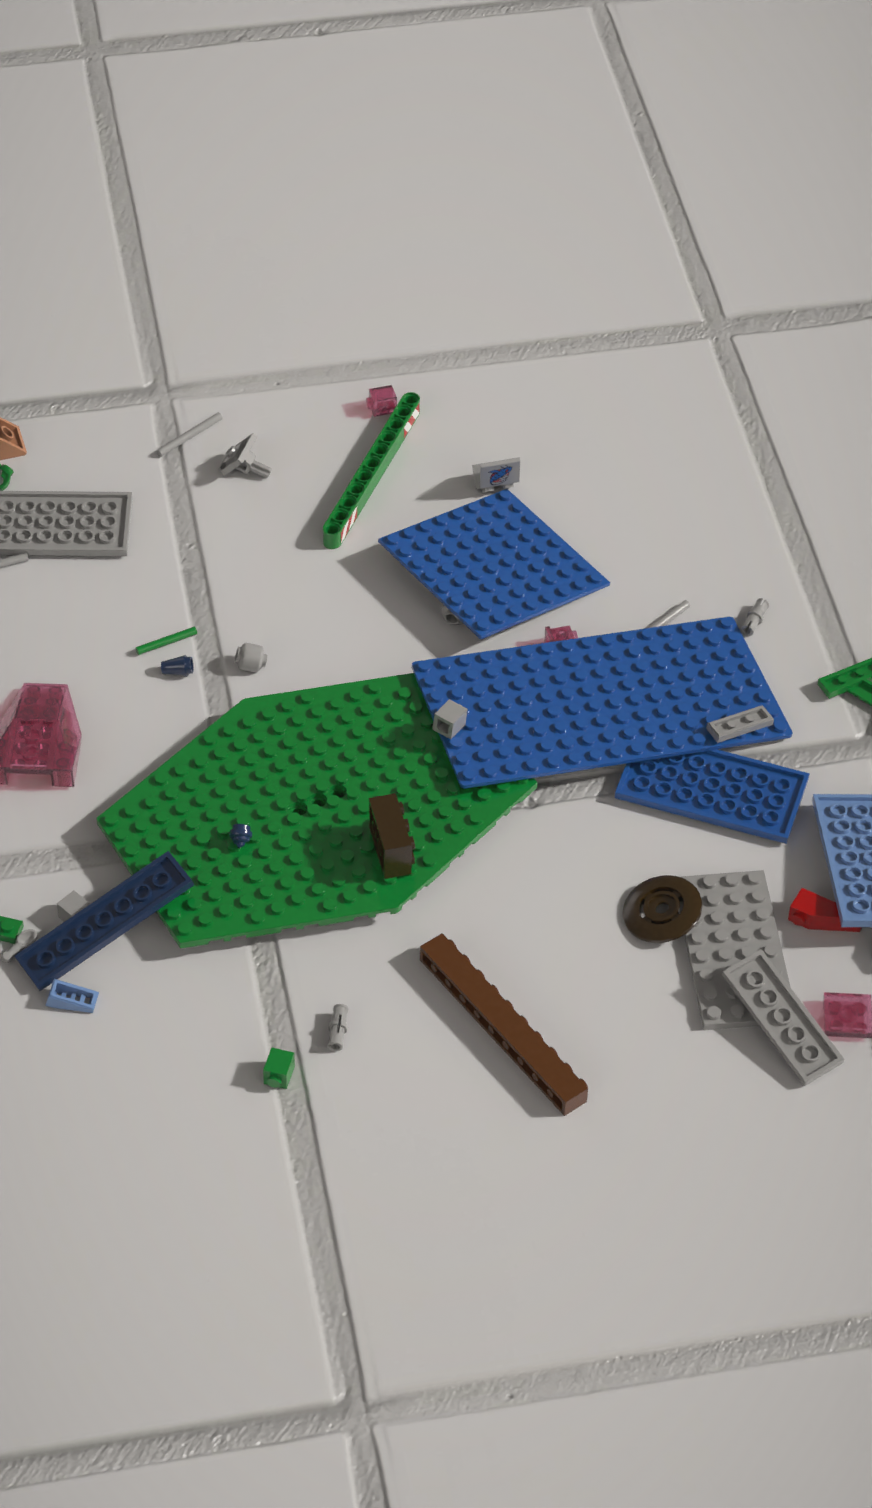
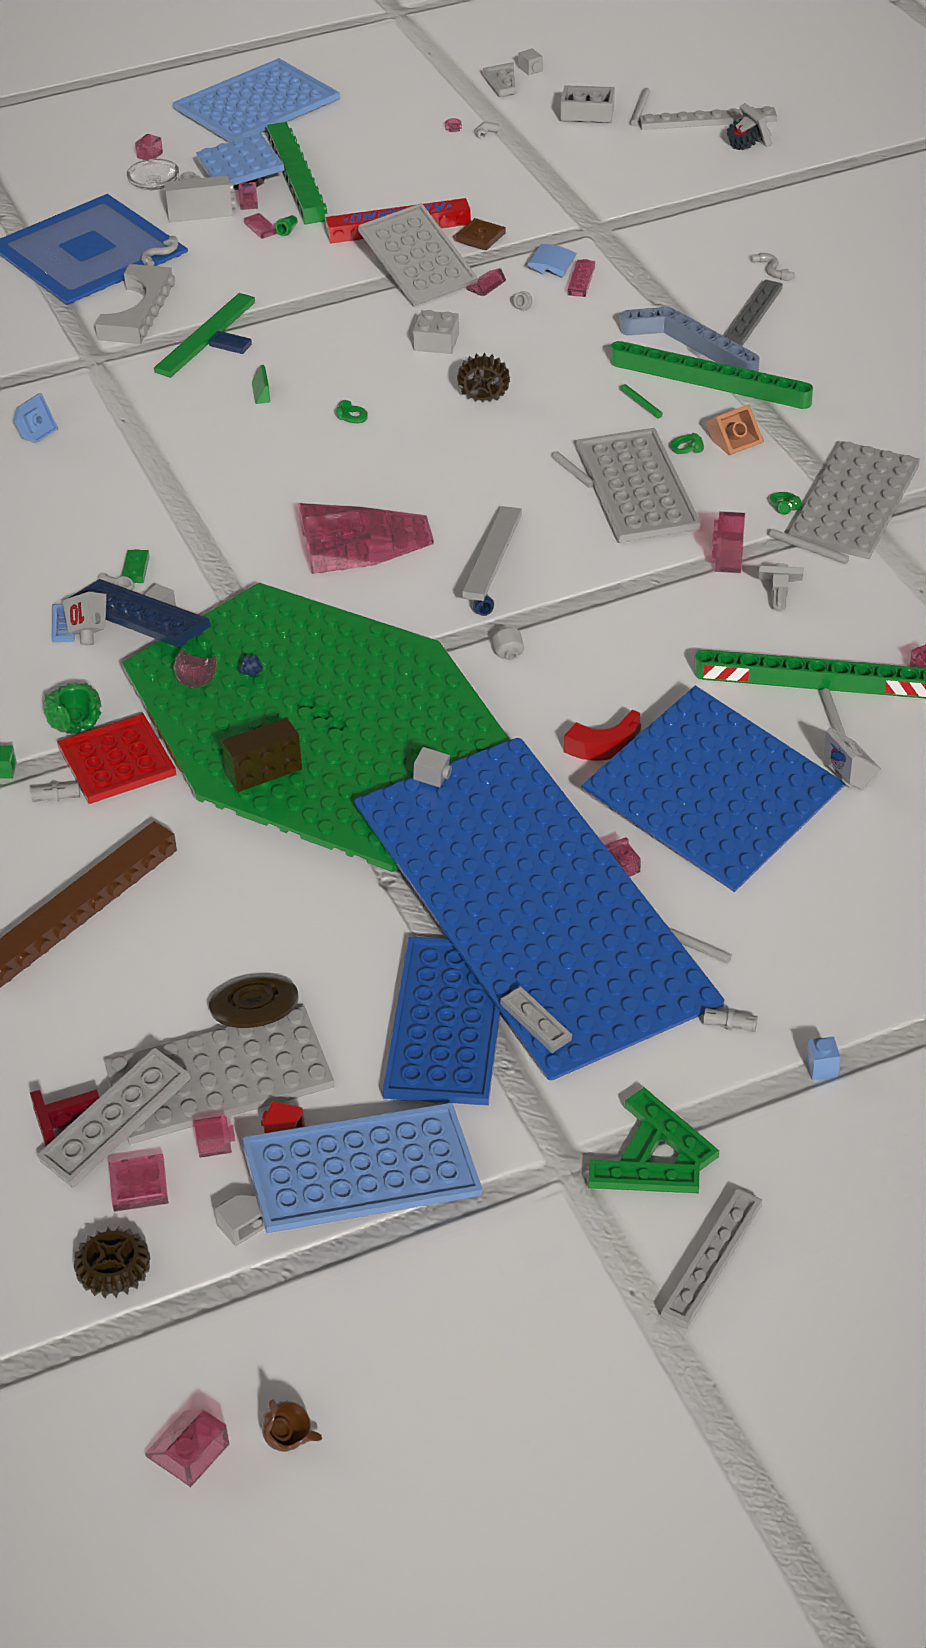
camera: 80 degrees right, 5 degrees down
(86, 967) = (85, 615): none -> light grey torso
(115, 641) = (492, 553): none -> light grey tile
(128, 434) = (784, 507): none -> green piece
(134, 389) = (855, 499): none -> light grey plate
(166, 640) = (517, 590): green bar -> none
(179, 476) = (728, 542): none -> clear pink brick
(228, 992) = (72, 708): none -> green hair
(237, 873) = (194, 671): none -> clear pink hair
(304, 973) = (116, 758): none -> red plate
(408, 631) = (604, 743): none -> red arch
(420, 474) = (832, 711): none -> light grey piece
(763, 1070) = (59, 1112): none -> dark red bracket
(810, 957) = (214, 1136): none -> clear pink brick
(811, 571) = (823, 1058): none -> medium blue brick

